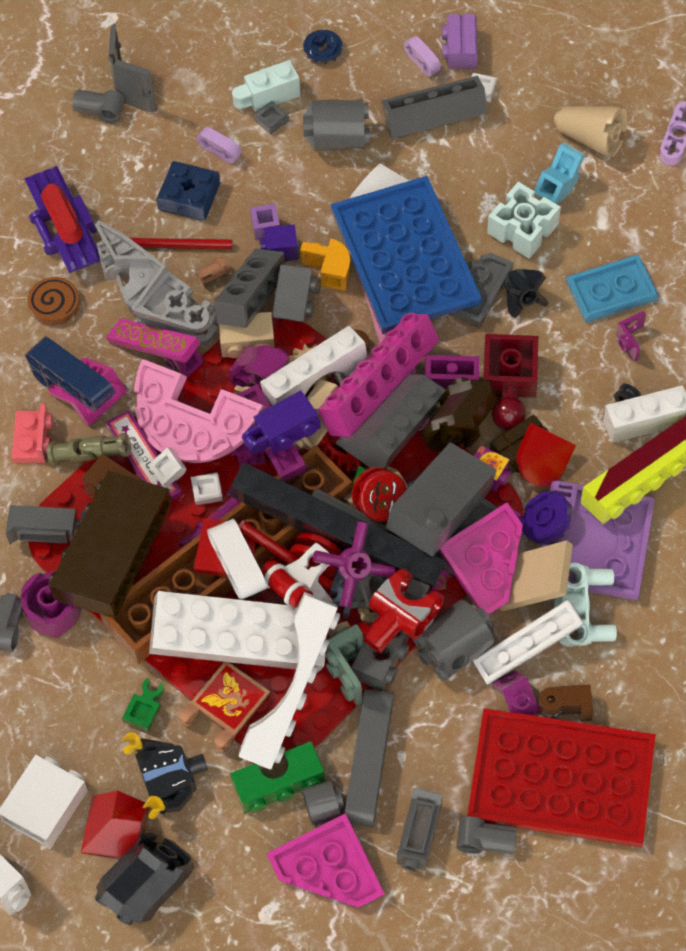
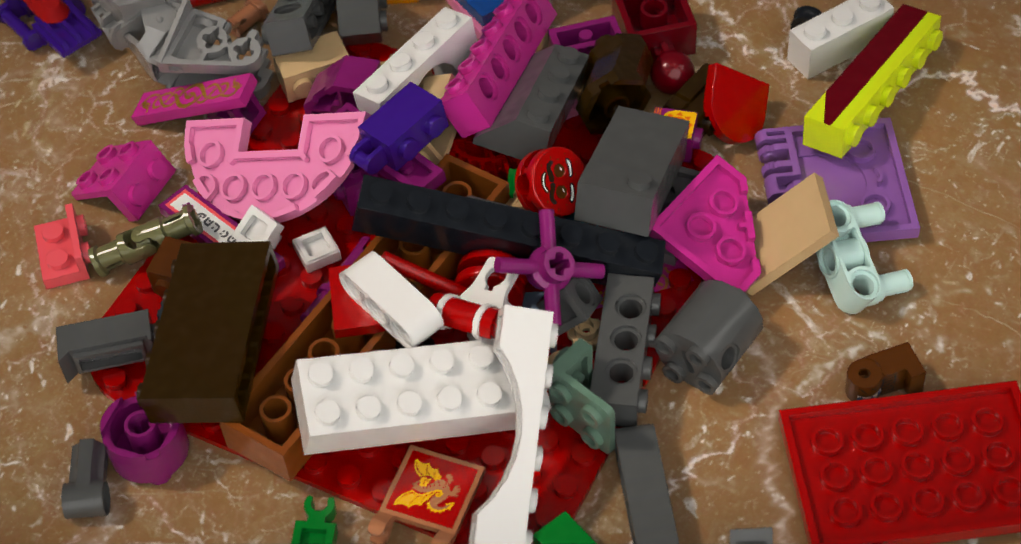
camera: 15 degrees left, 10 degrees down
(53, 300) = (51, 96): dark orange tile -> none
(55, 364) = (73, 151): dark blue beam -> none
(399, 612) = (630, 313): red connector -> none
(517, 693) = (815, 380): magenta bracket -> none
(528, 642) = (806, 313): white tile -> none
(546, 517) = (769, 169): dark purple tile -> none

